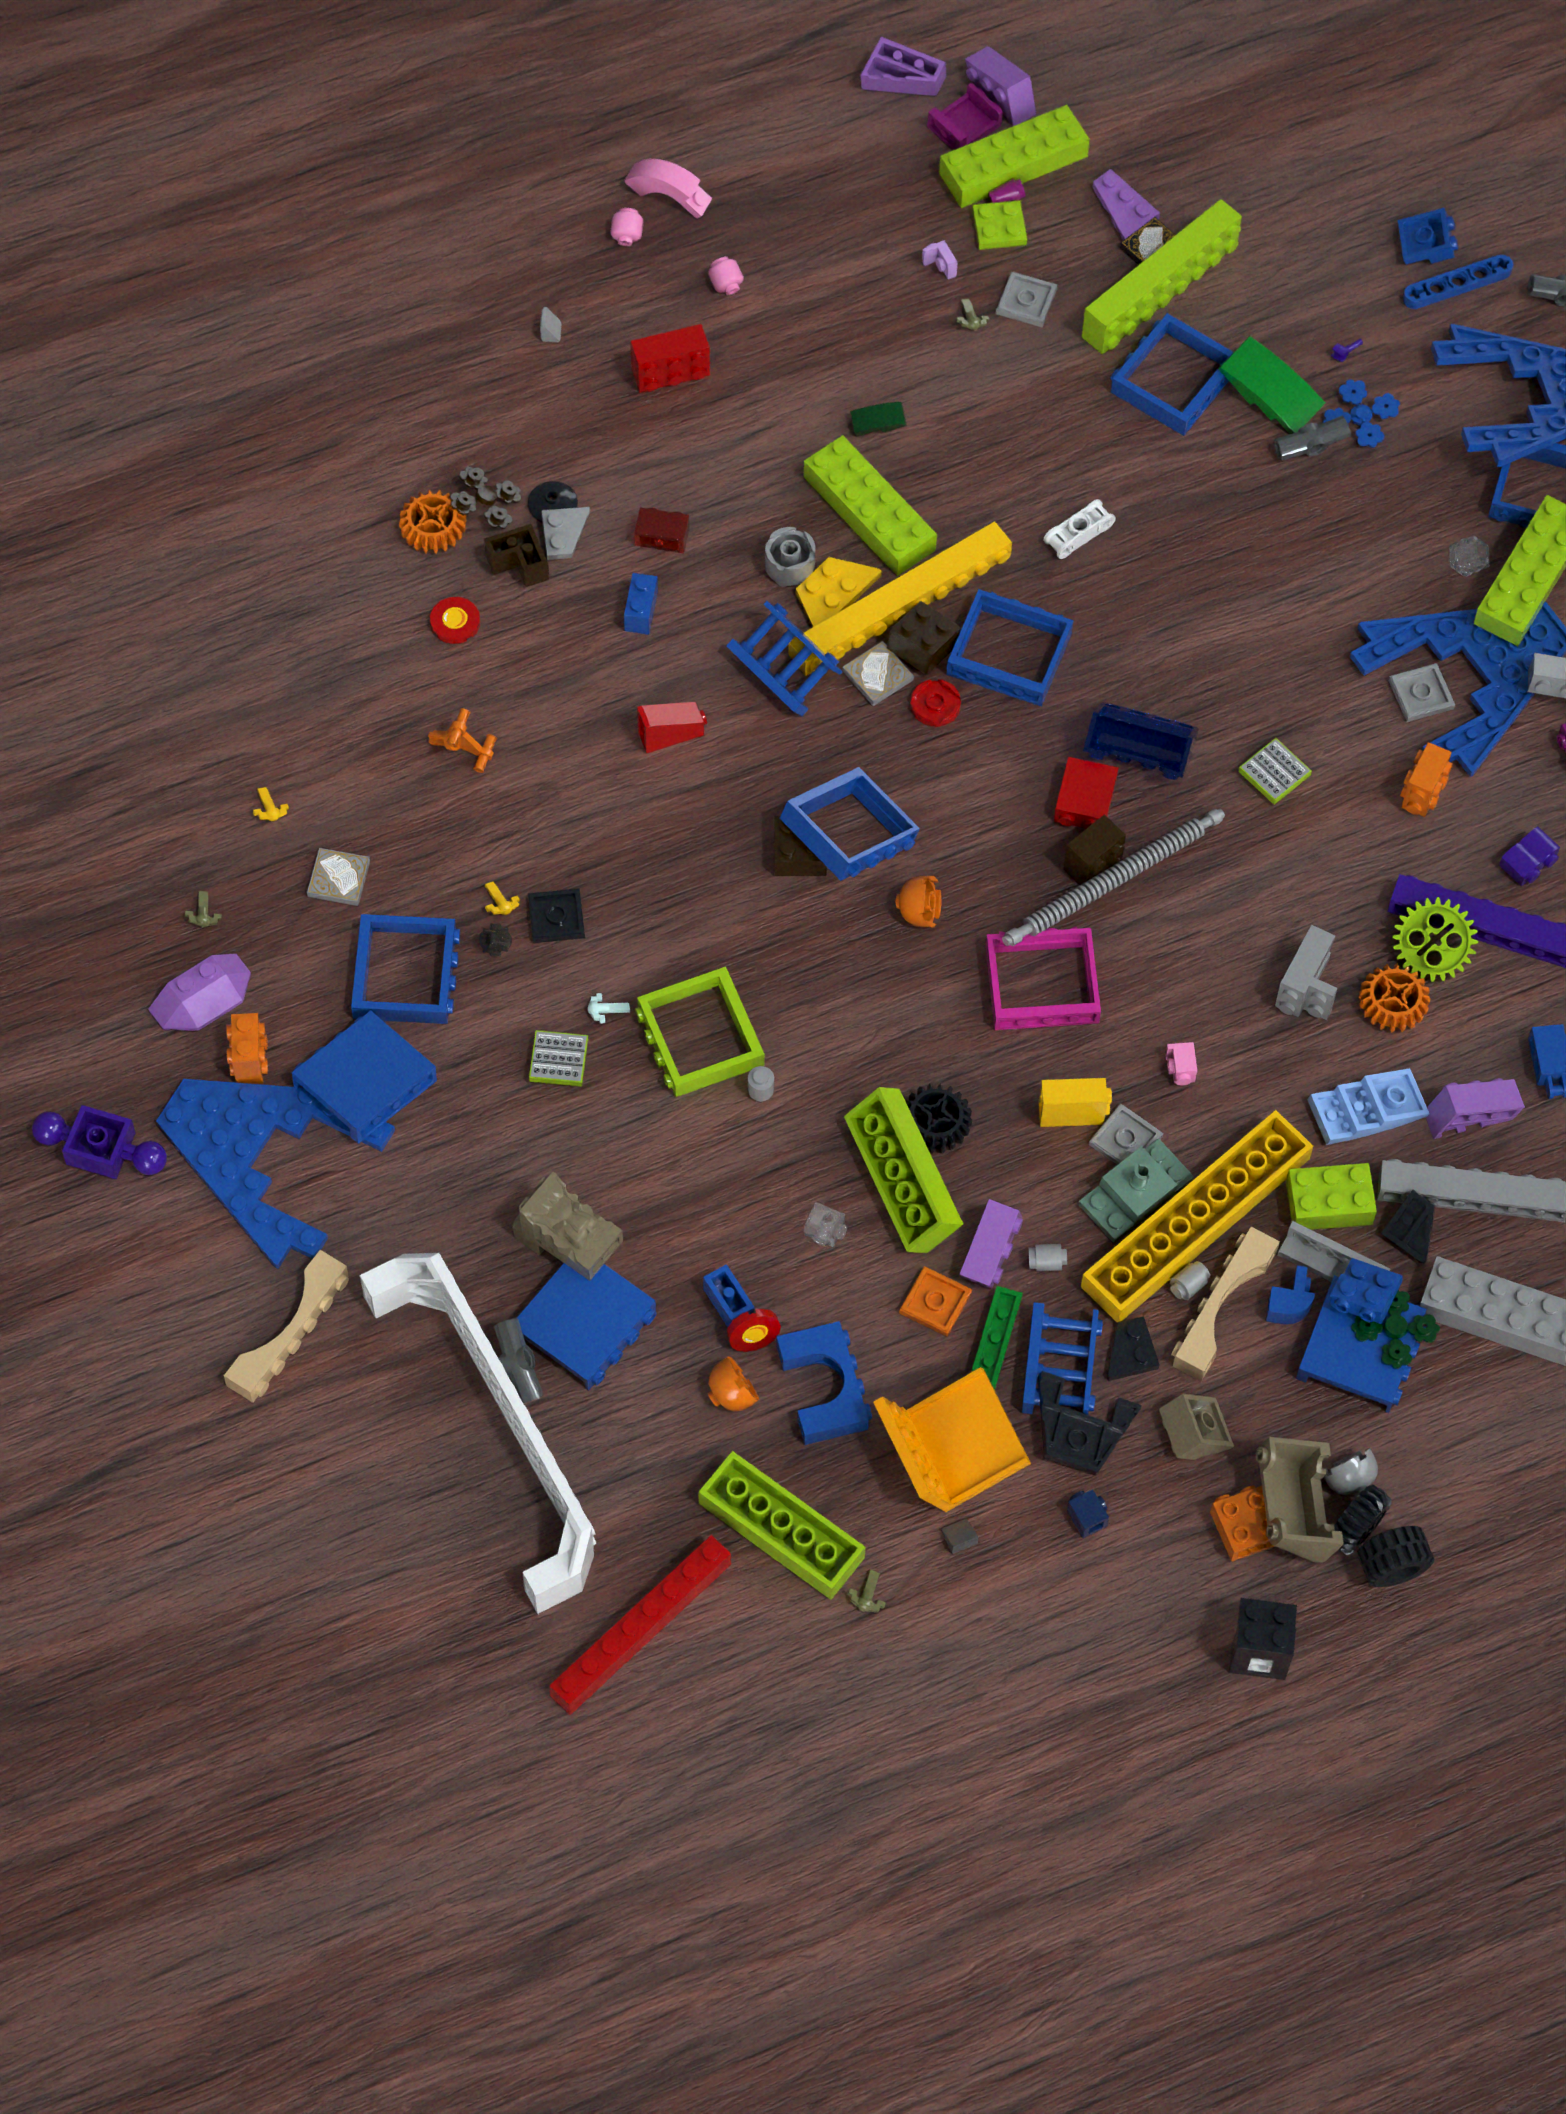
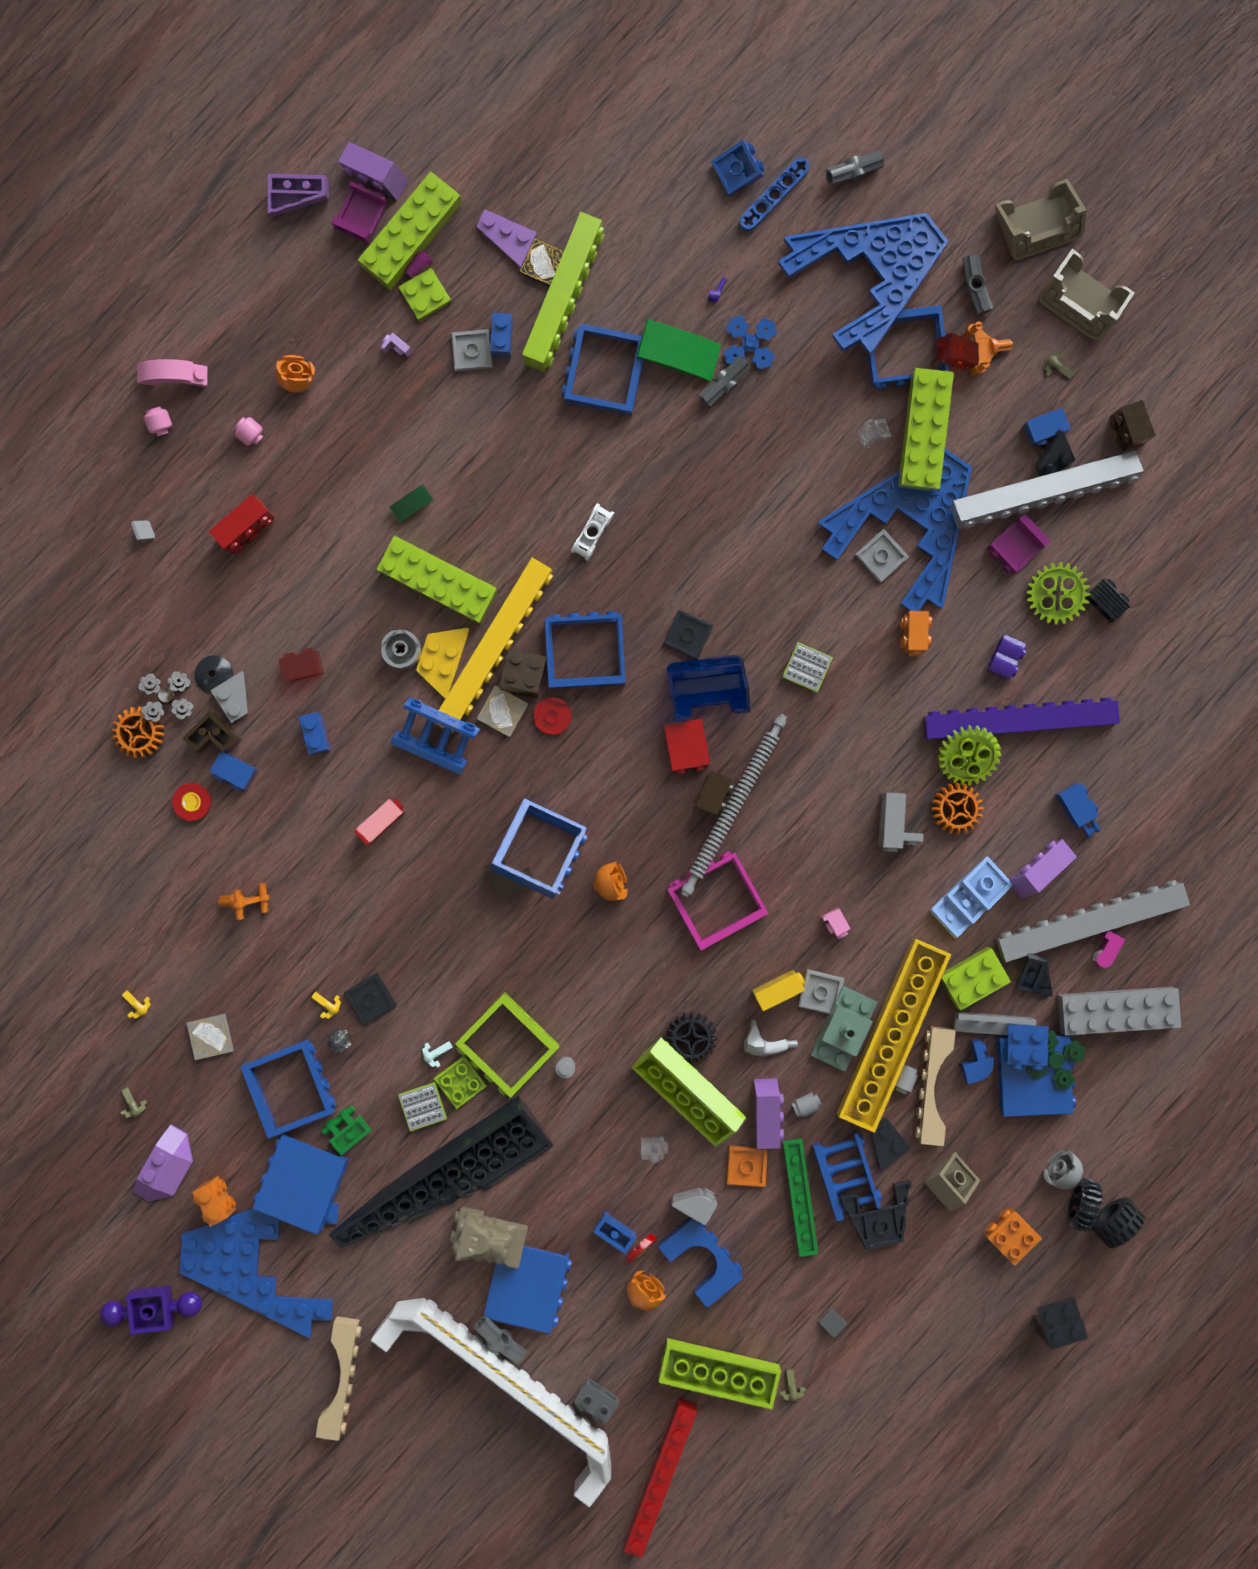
camera: 20 degrees left, 25 degrees up
(452, 1052) = (349, 1135): none -> green plate
(523, 605) = (234, 771): none -> blue brick
(582, 1146) = (457, 1169): none -> black wedge
(604, 1491) = (596, 1401): none -> dark grey brick
(619, 1053) = (460, 1082): none -> lime tile
(808, 239) = (294, 373): none -> orange cylinder
(850, 1304) = (696, 1203): none -> light grey slope
(955, 1441) = (801, 1274): light orange bracket -> none
(972, 321) = (443, 389): olive piece -> none
(1015, 1161) = (757, 1046): none -> light grey animal
(1069, 294) = (501, 335): none -> blue brick
(1088, 1512) = (908, 1272): dark blue brick -> none
(1144, 682) = (688, 634): none -> black tile
(1295, 1498) = (1042, 1218): dark tan windscreen -> none
(1517, 1241) = (1109, 949): none -> dark pink leg

